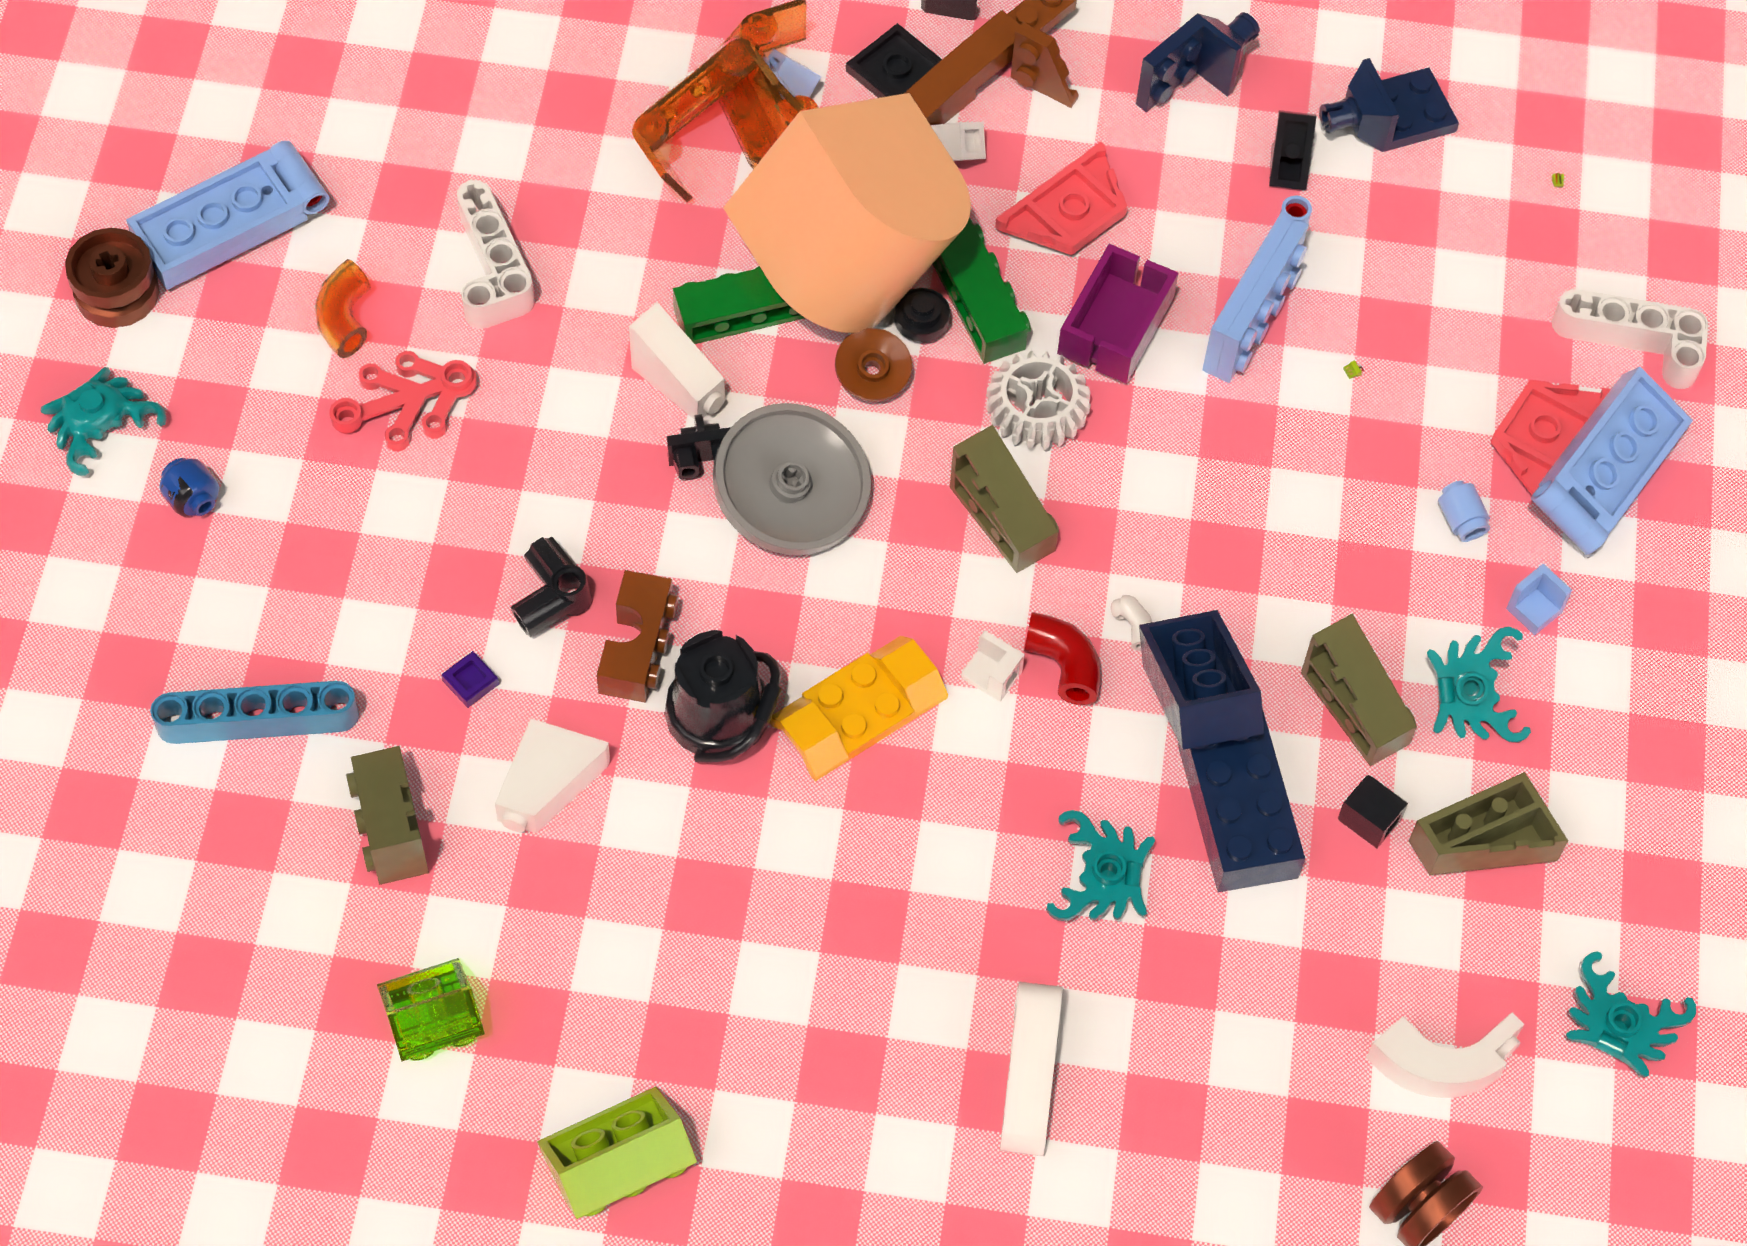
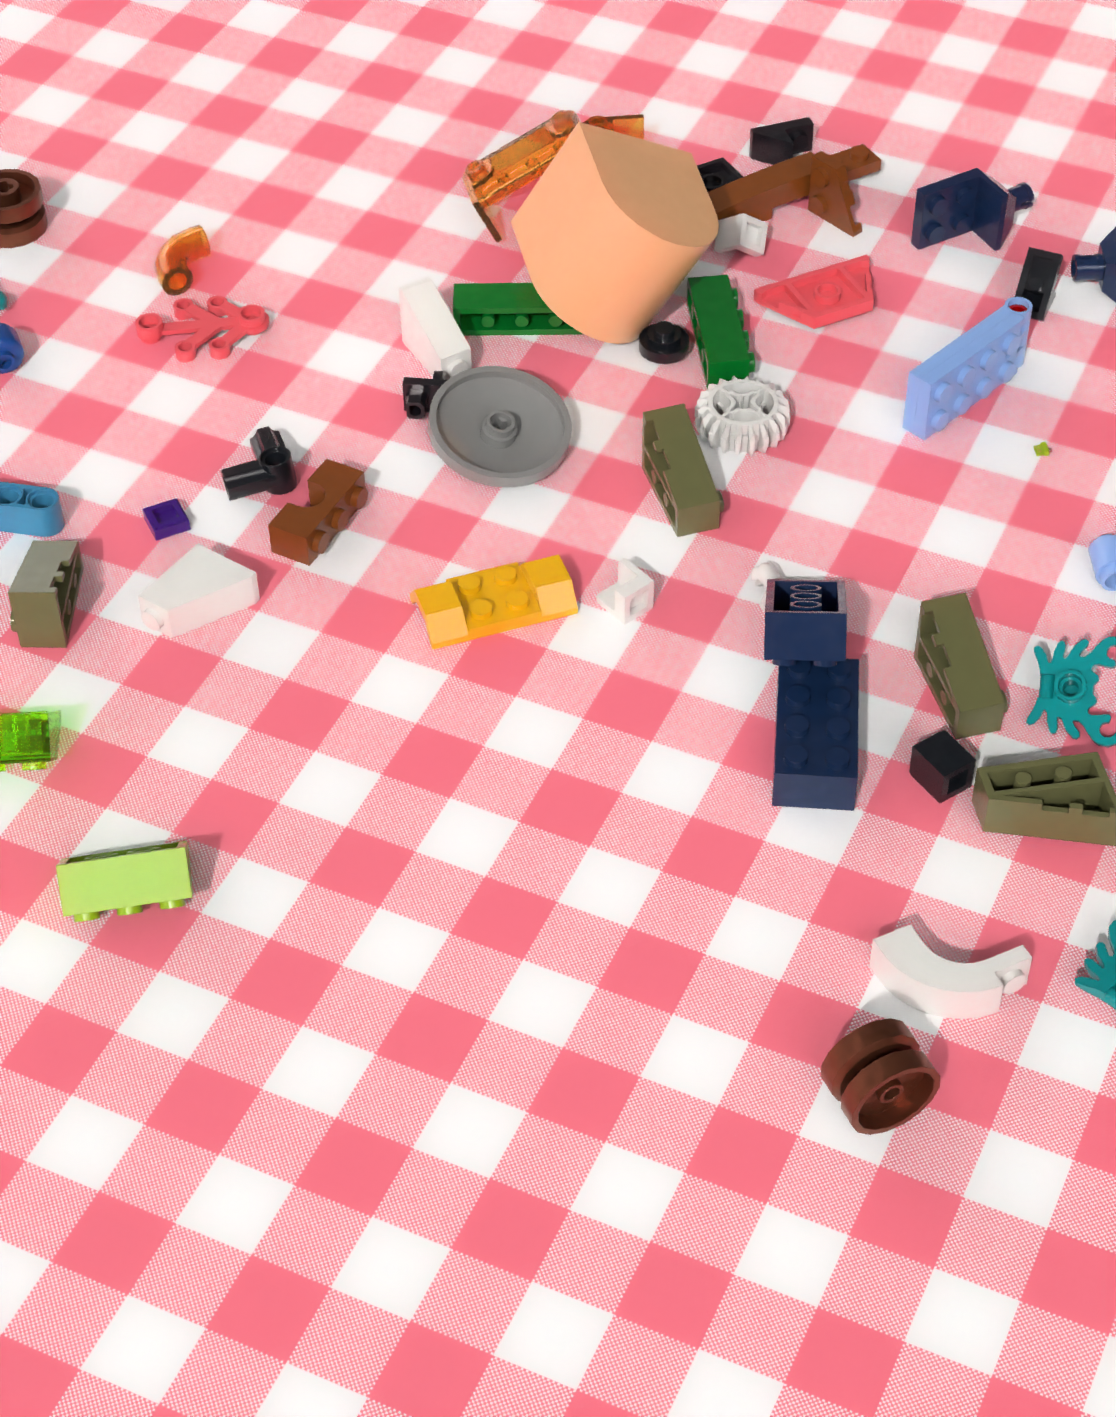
camera: 20 degrees right, 15 degrees down
(229, 213) = (119, 186): light blue hinge -> none
(499, 246) = (319, 268): beam -> none
(717, 697) = (367, 556): black piece -> none
(877, 349) = (606, 366): dark orange dish -> none
(1031, 1068) = (549, 852): white beam -> none
(1073, 653) = (699, 591): red cylinder -> none
(1109, 873) = (670, 761): teal animal -> none
(1116, 317) = (830, 365): magenta piece -> none

